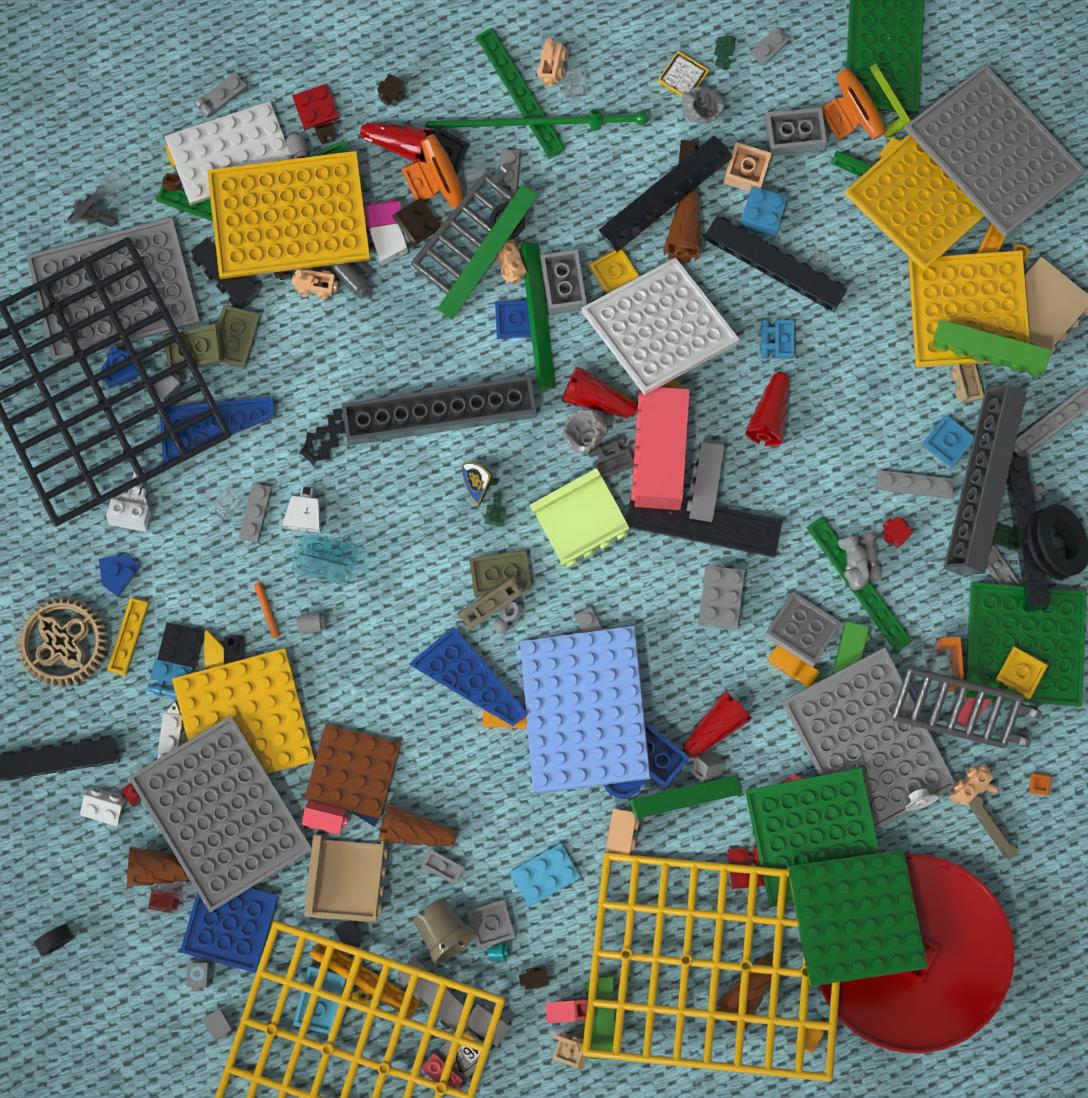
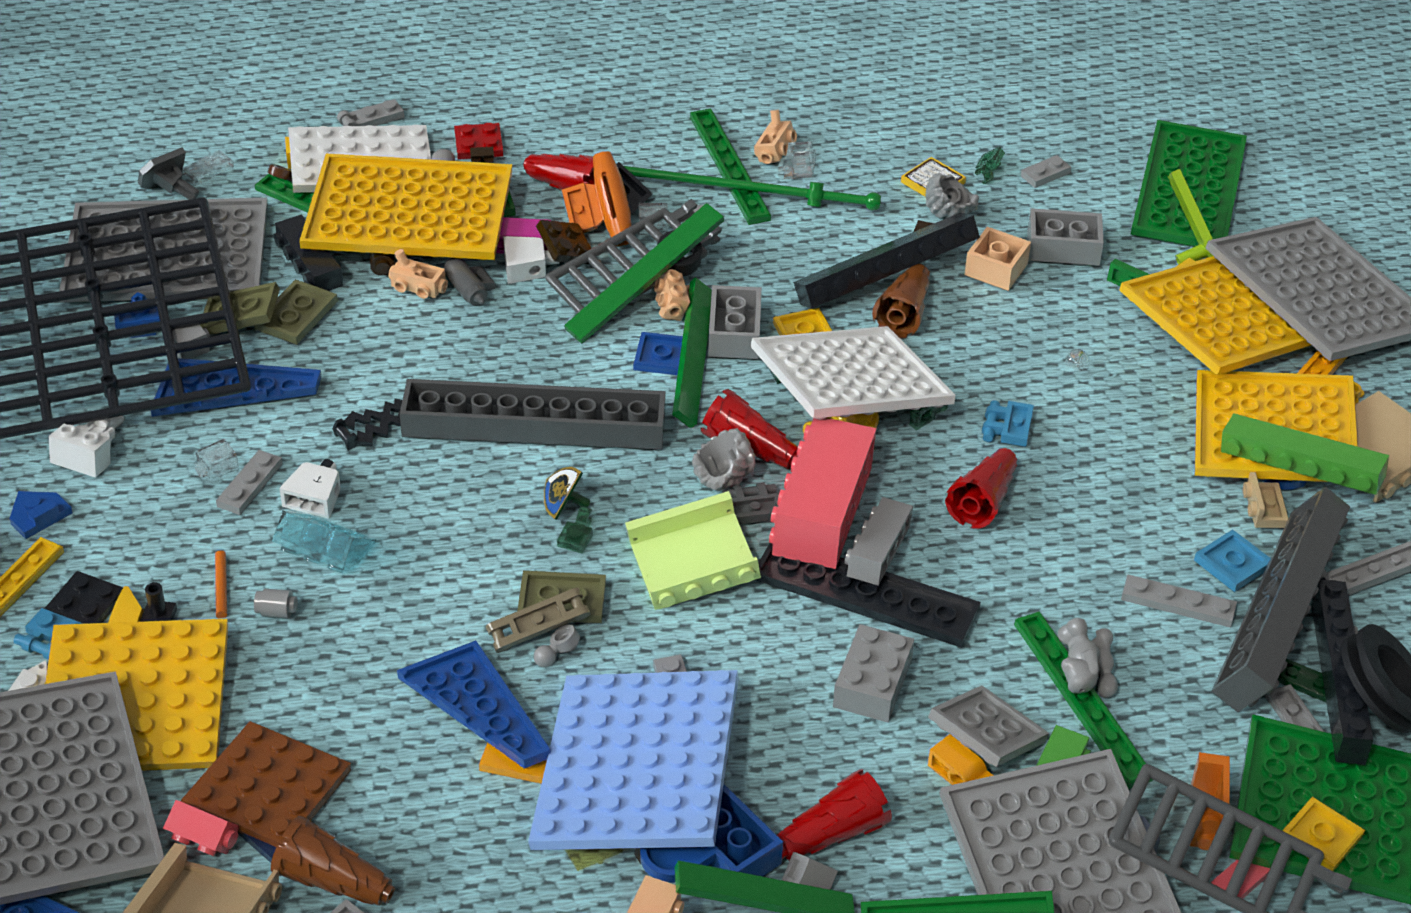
camera: 10 degrees right, 35 degrees down
(391, 90) = (575, 137): dark brown brick -> none
(763, 212) = (1011, 301): dark azure brick -> none
(775, 264) = (1020, 352): black brick -> none
(854, 109) = (1145, 224): orange plate -> none
(896, 531) = (1146, 643): red brick -> none

